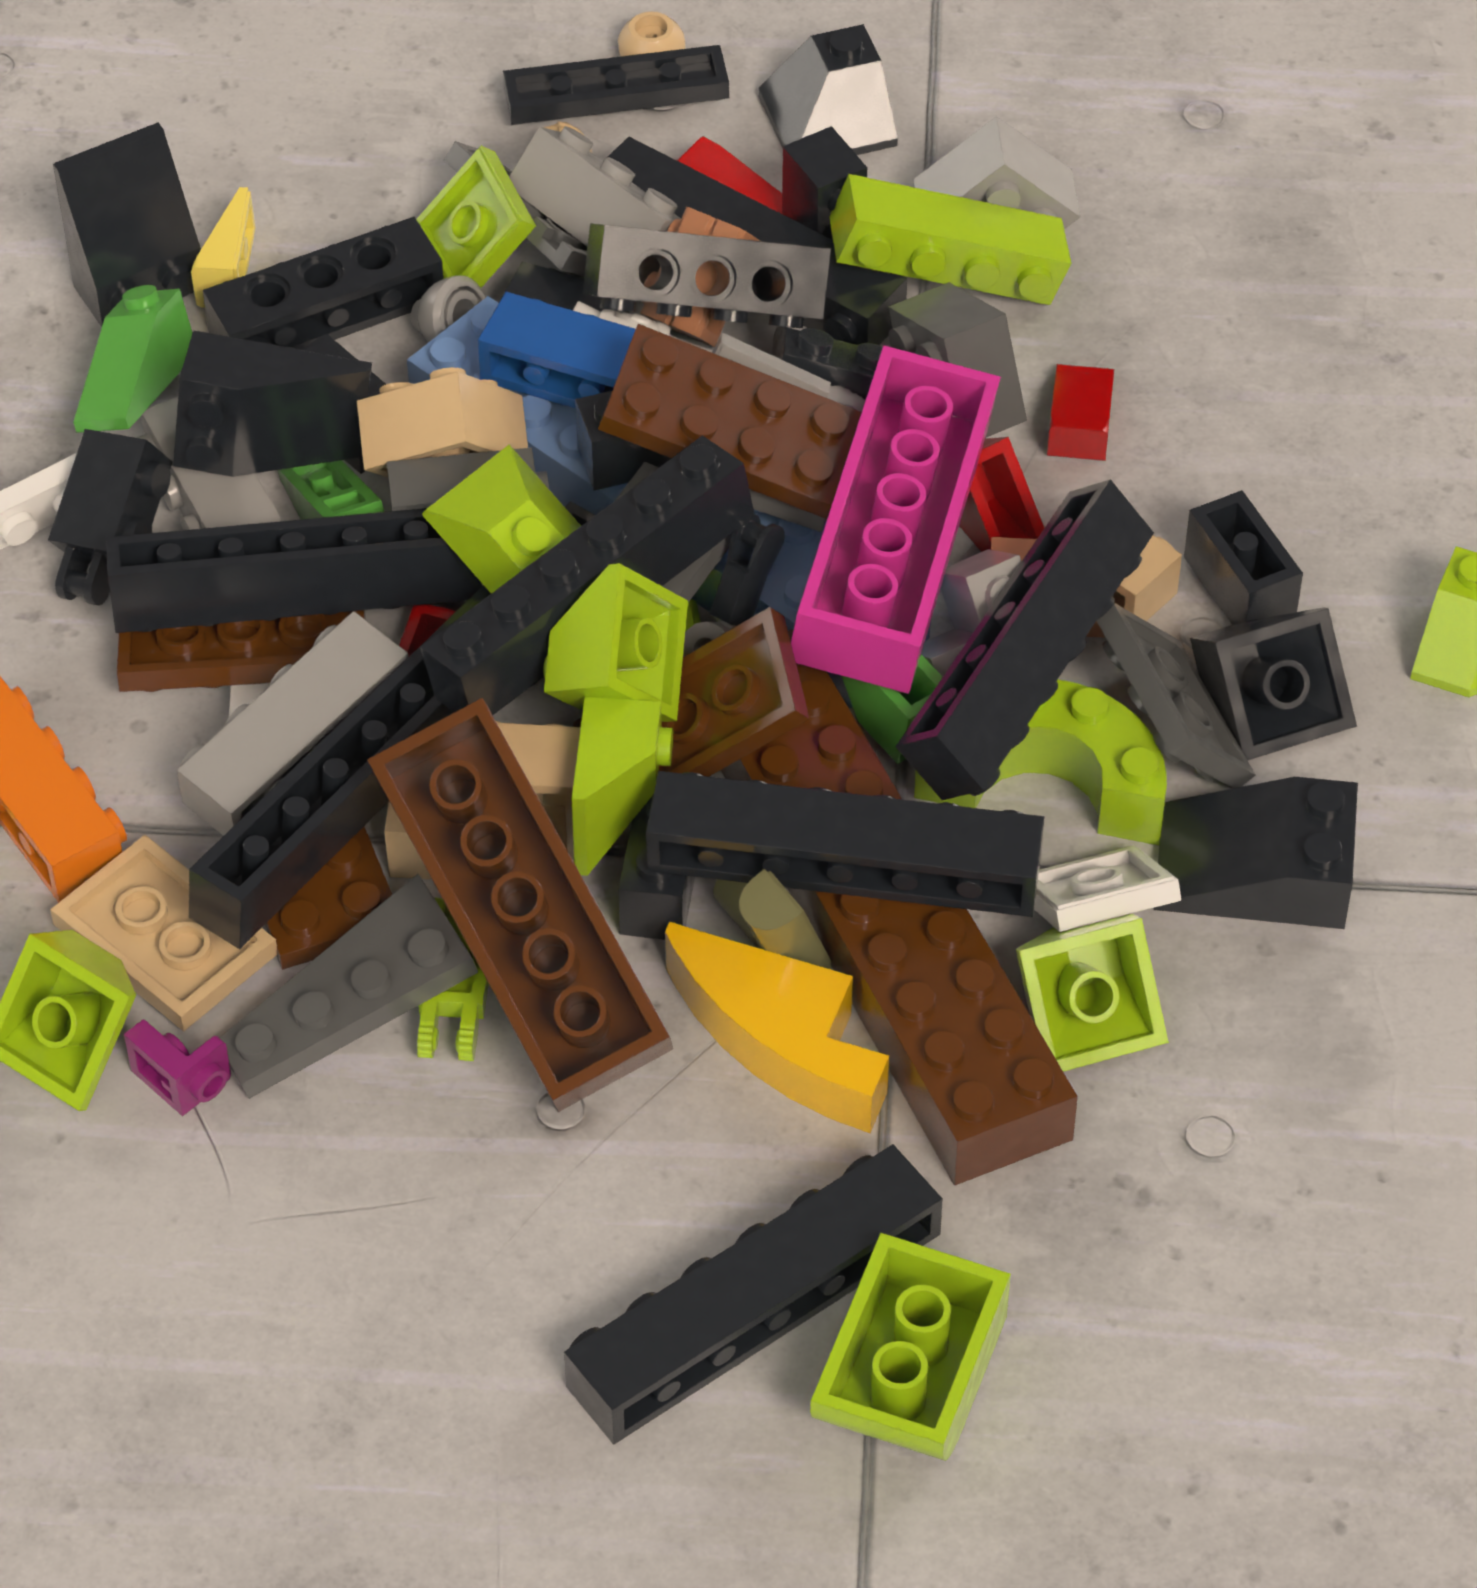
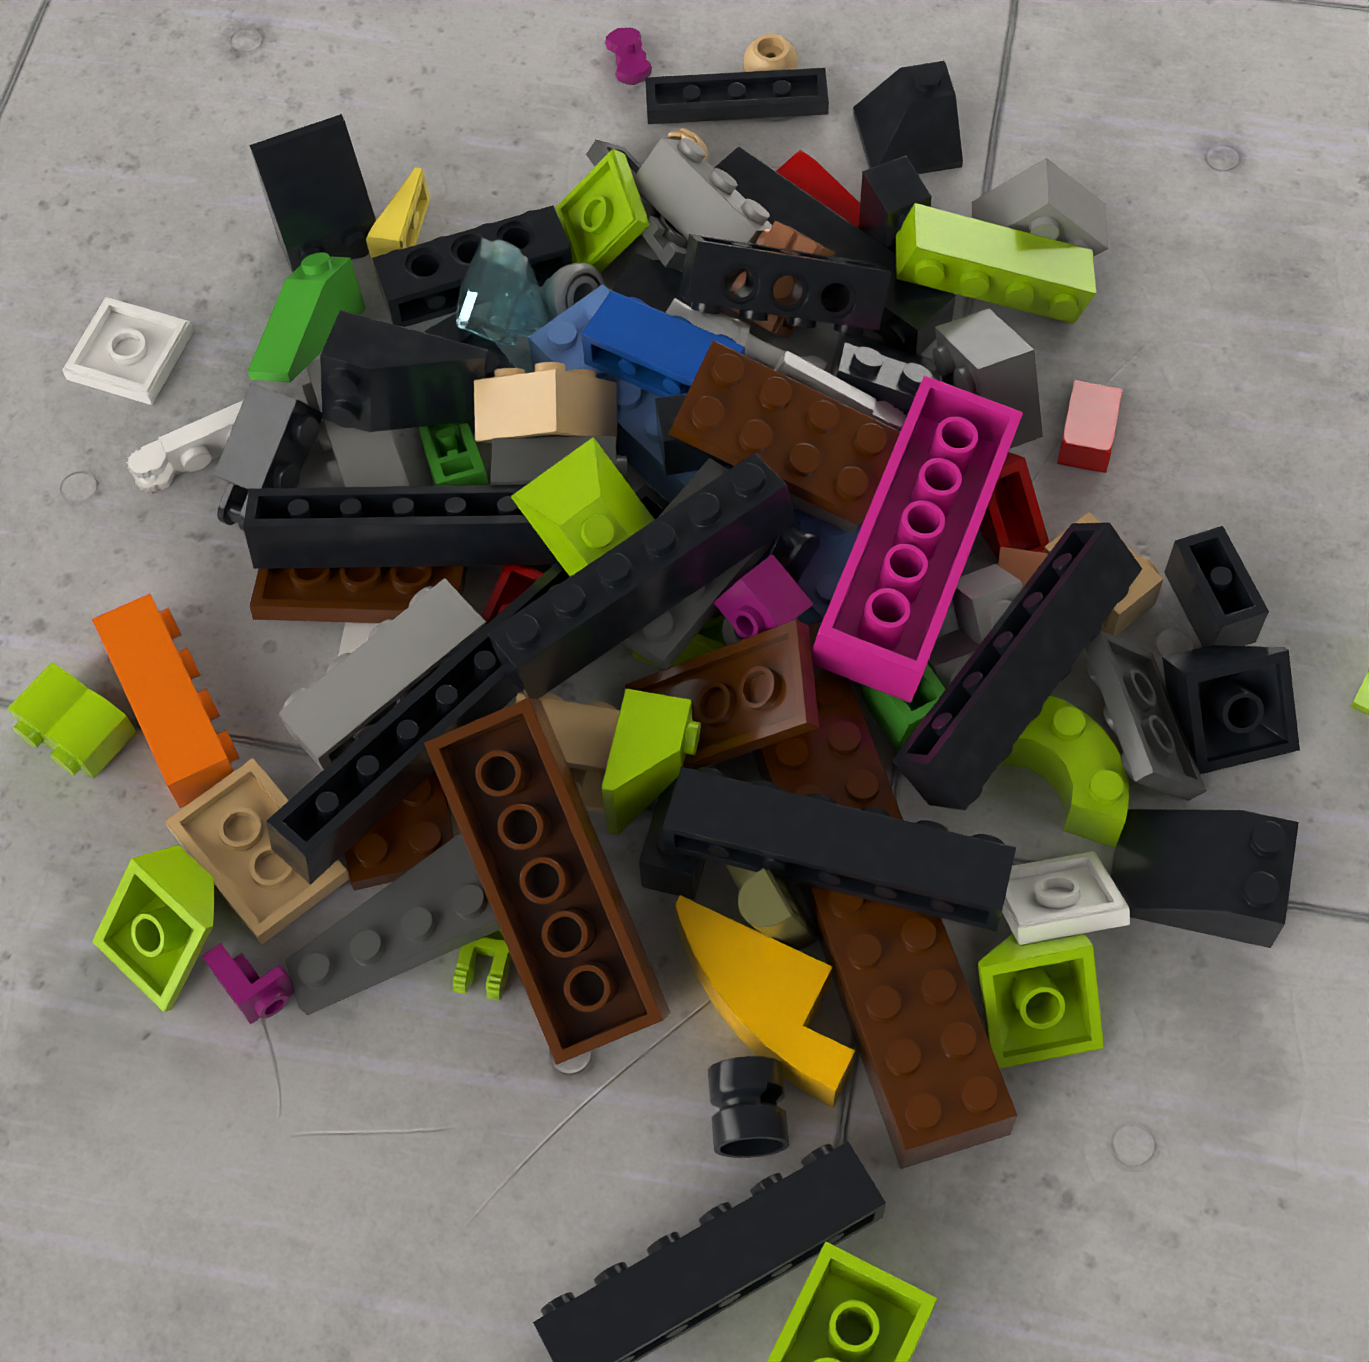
camera: 10 degrees right, 10 degrees up
(366, 313) = (501, 295): none -> clear light blue slope
(478, 50) = (630, 56): none -> magenta piece
(619, 643) = (663, 642): lime slope -> none
(727, 596) = (763, 599): none -> magenta brick
(775, 1129) = (748, 1098): none -> black wheel

